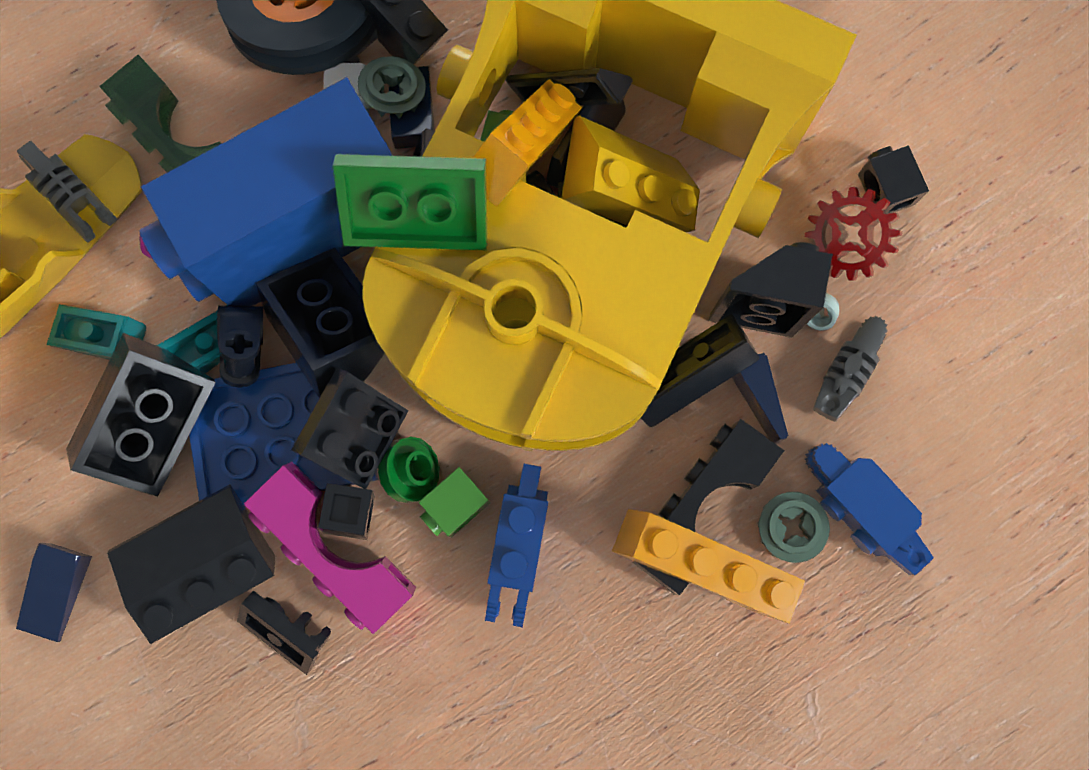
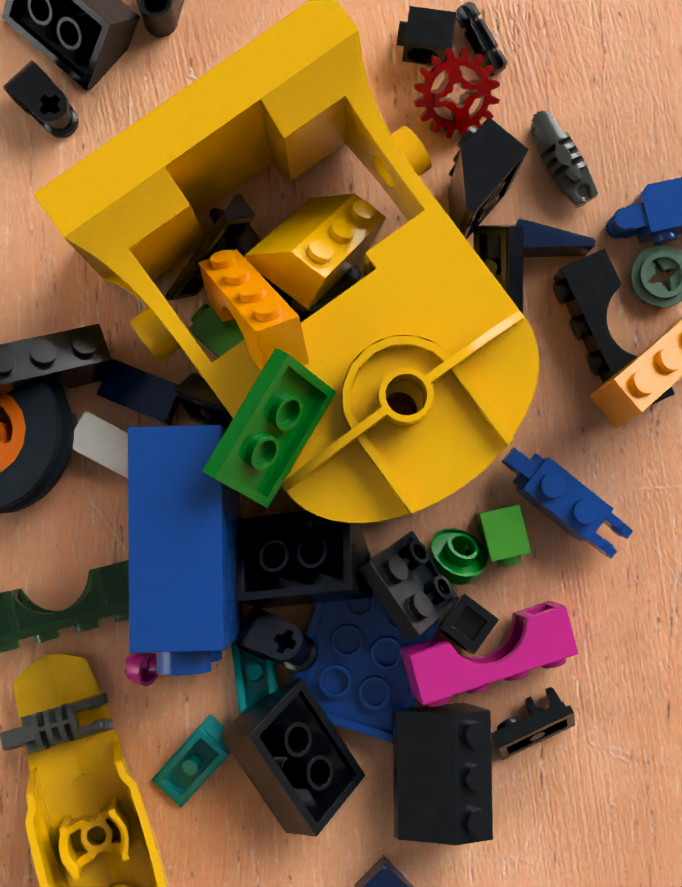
camera: 60 degrees left, 5 degrees up
(391, 72) = (106, 390): sand green gear -> none
(922, 232) = (480, 37): none -> black axle

